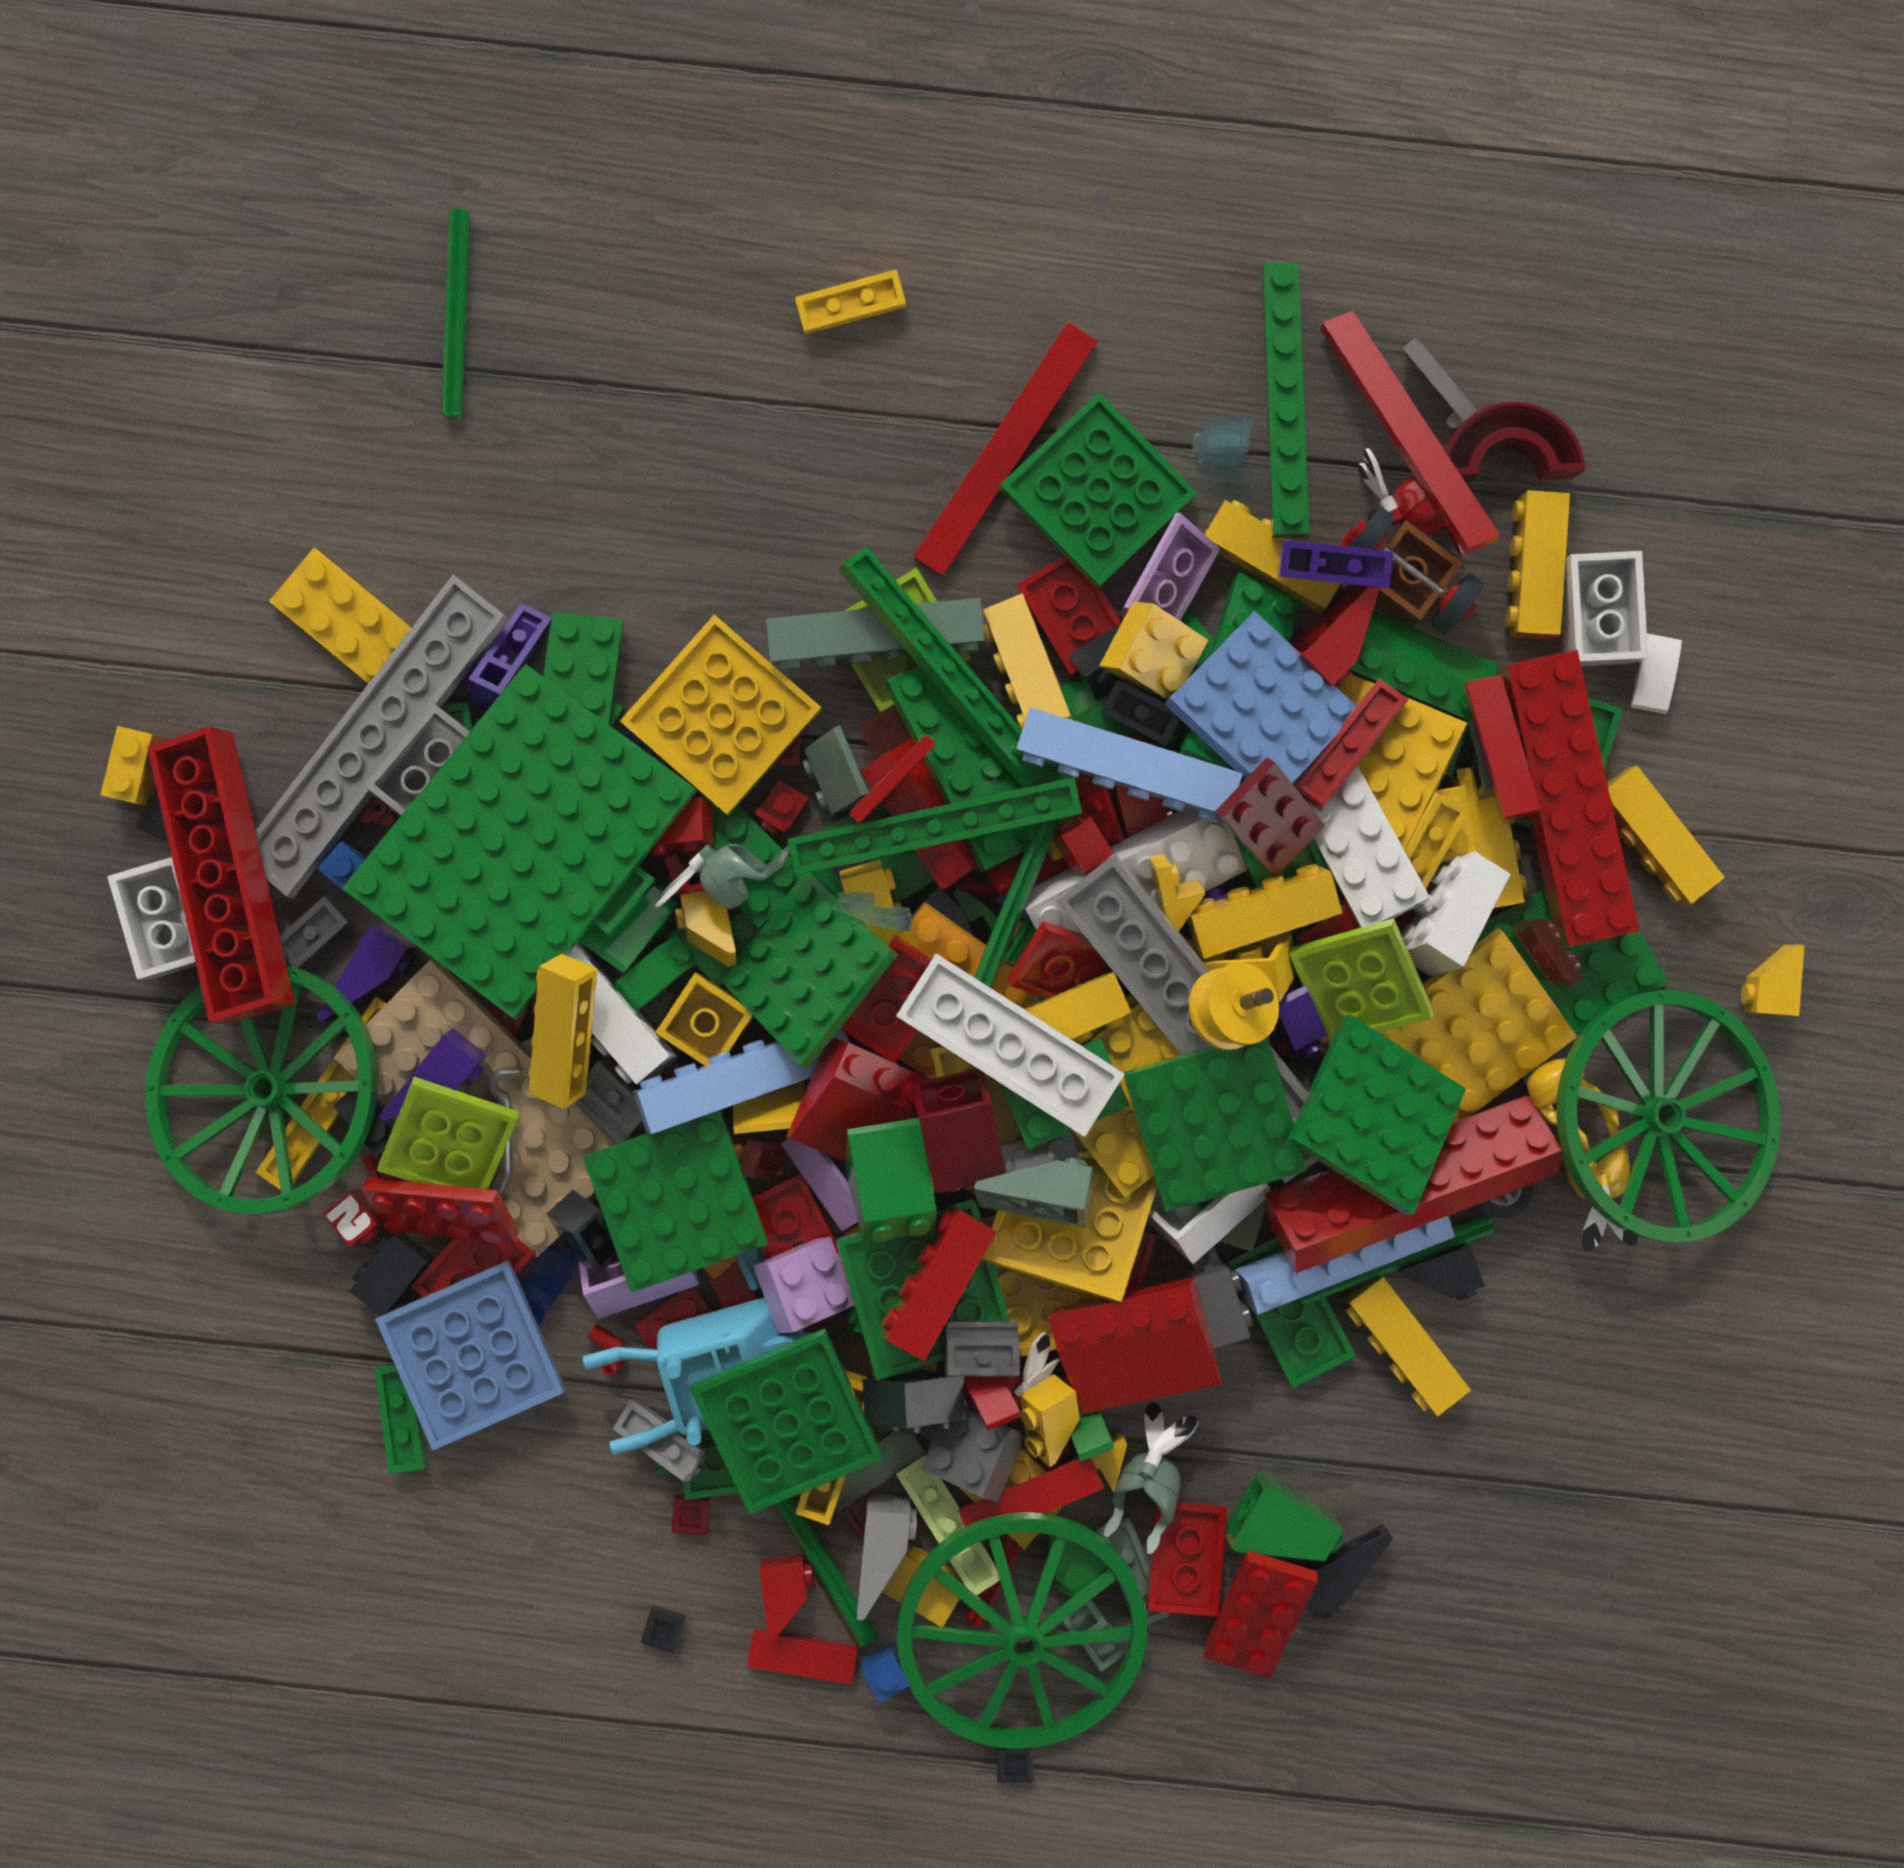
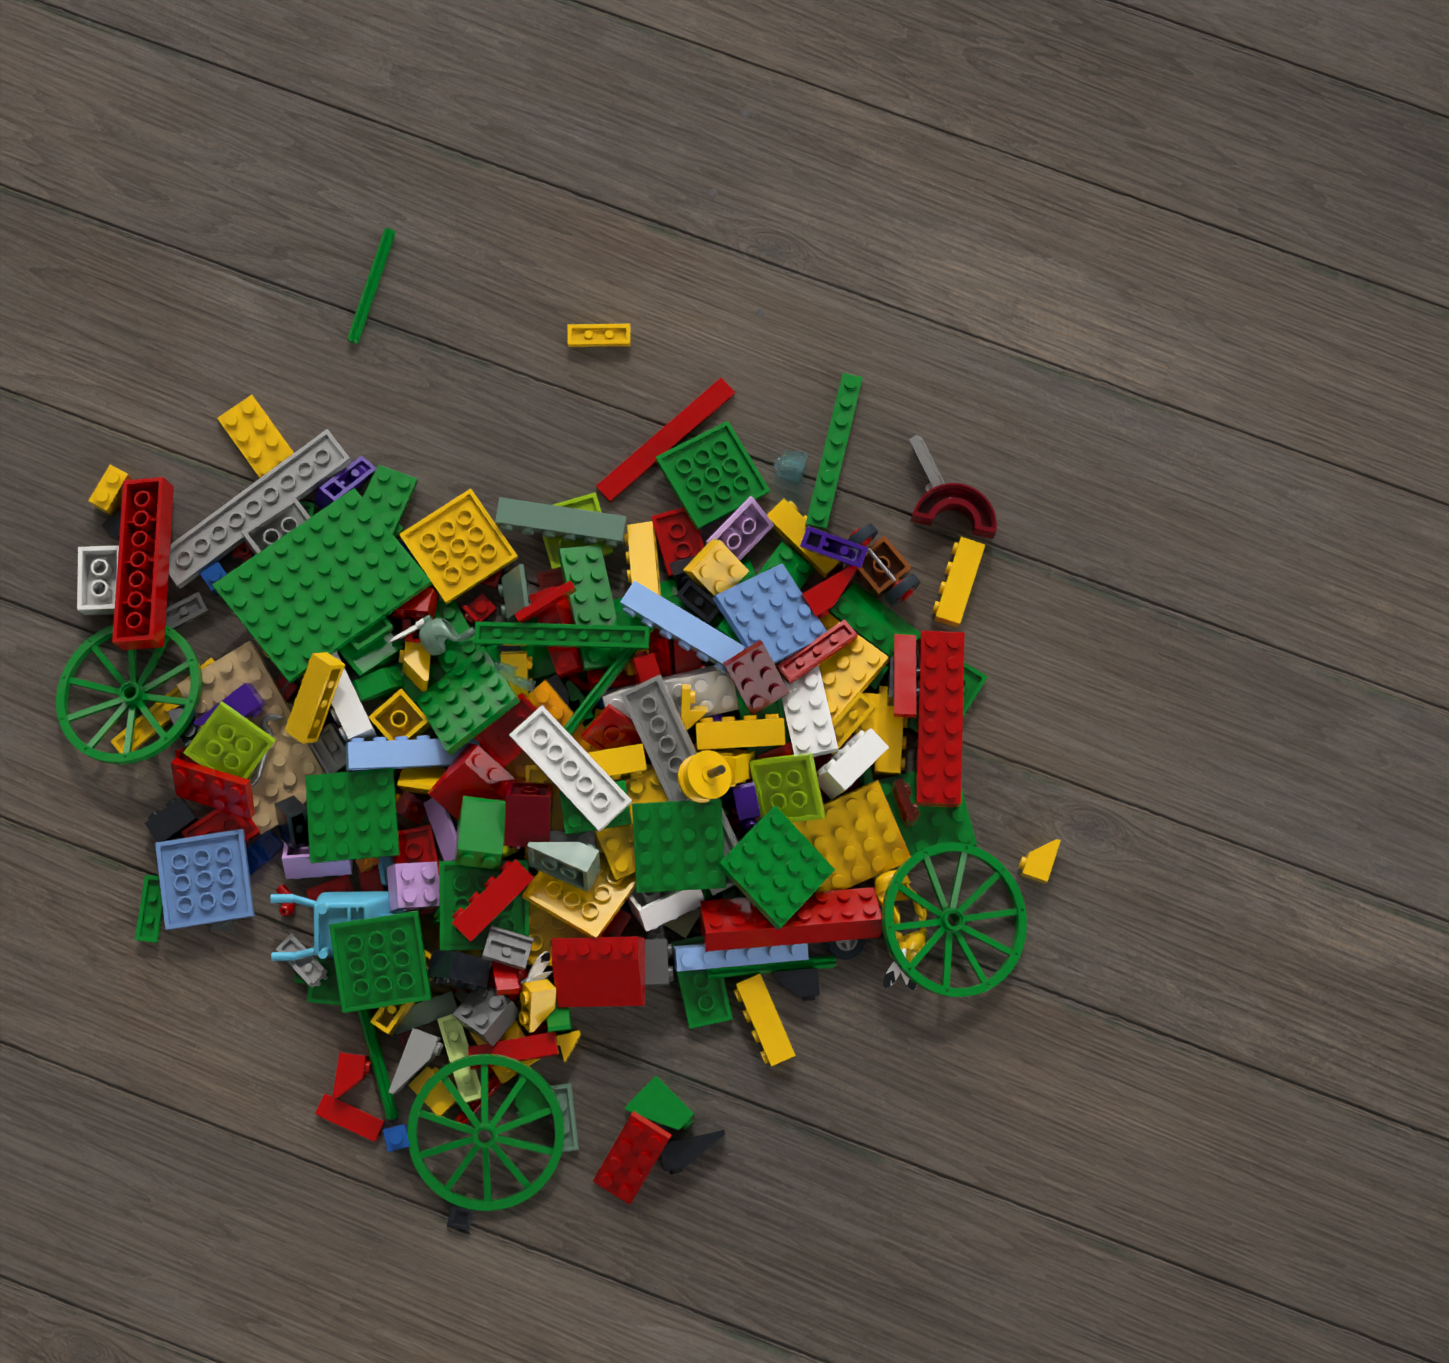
camera: 10 degrees right, 10 degrees down
(354, 1218) = (160, 783): brick -> none
(373, 966) = (214, 640): dark purple slope -> none
(663, 1629) = (270, 1079): black tile -> none
(690, 1515) = (307, 1013): dark red tile -> none
(940, 663) = (591, 545): green plate -> none
(1089, 1618) = (533, 1160): sand green slope -> none
(1153, 1472) = (591, 1057): sand green hair -> none
(1188, 1561) = (598, 1115): red plate -> none
(1408, 502) = (895, 528): red hair -> none
(1409, 432) = (899, 486): red tile -> none
(1605, 608) = (989, 615): white brick -> none
(1656, 675) = (1013, 661): white slope -> none
(1661, 838) = (991, 756): yellow brick -> none

